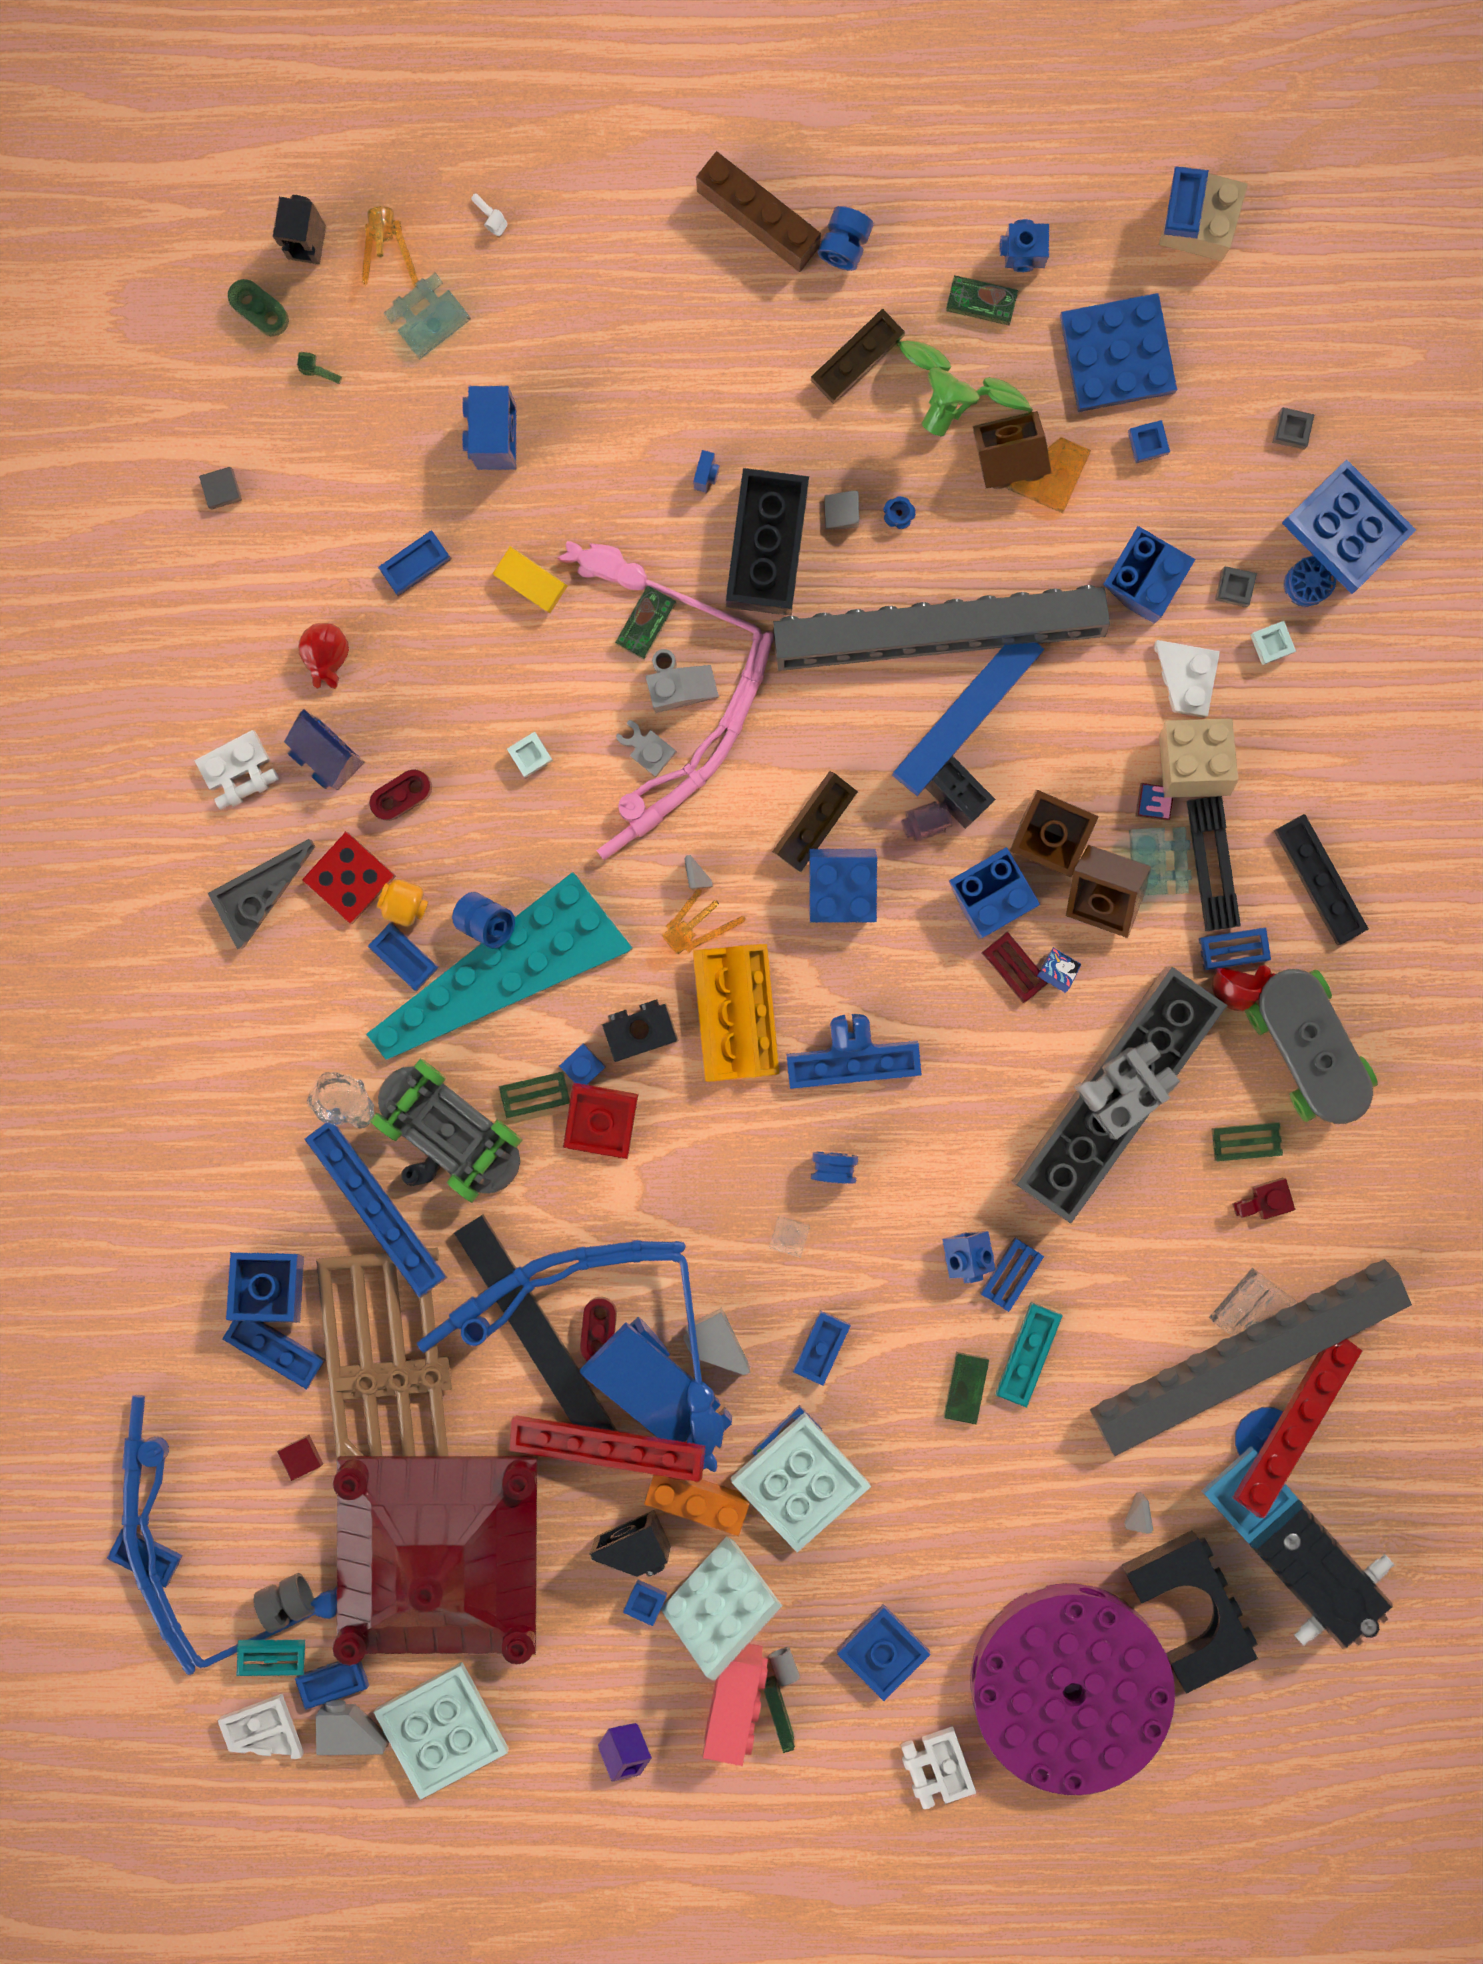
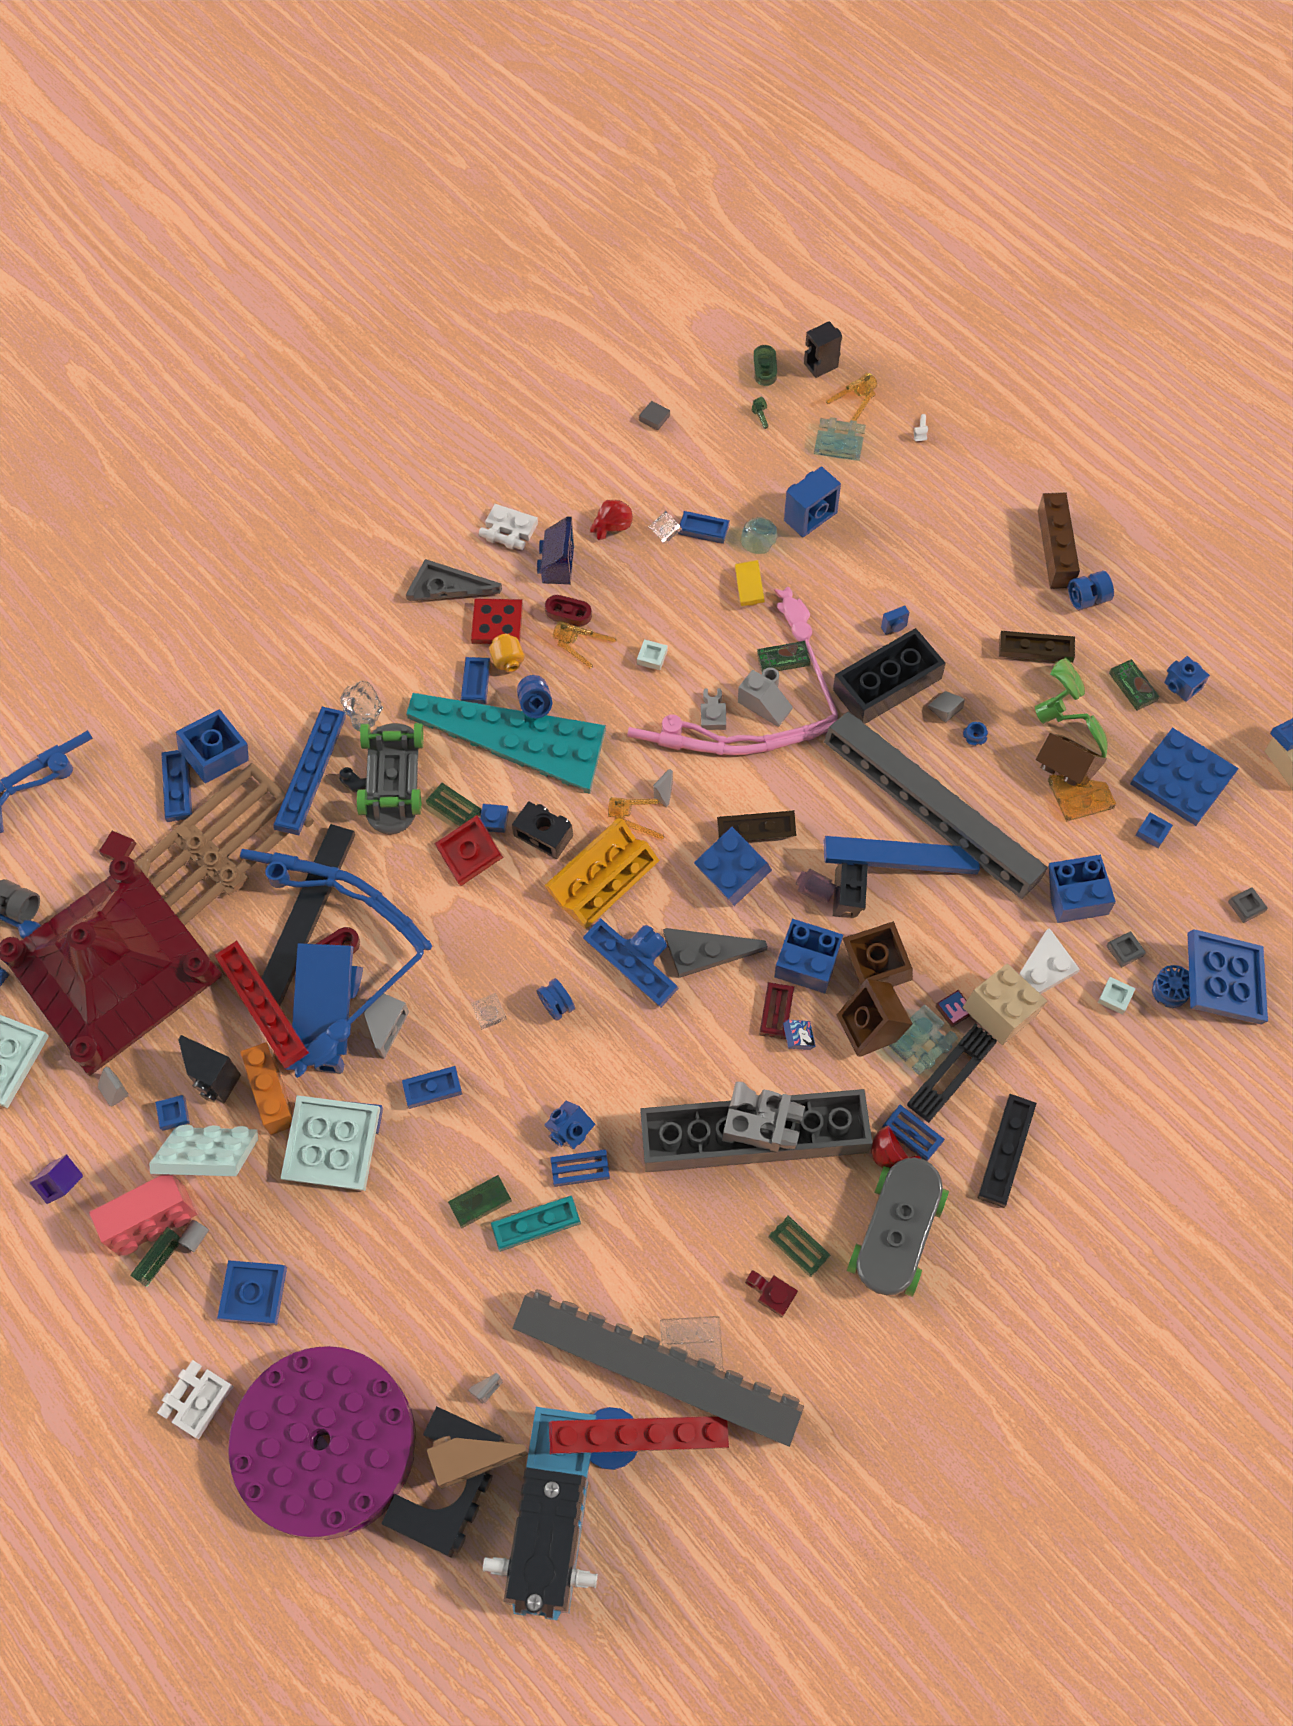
camera: 50 degrees right, 25 degrees down
(383, 606) = (665, 527): none -> clear plate
(429, 818) = (568, 634): none -> clear yellow plant
(477, 515) = (759, 535): none -> clear light blue hair
(569, 1638) = (111, 1087): none -> light grey slope
(895, 987) = (702, 951): none -> dark grey wing
(1200, 1583) = (465, 1458): none -> medium nougat slope

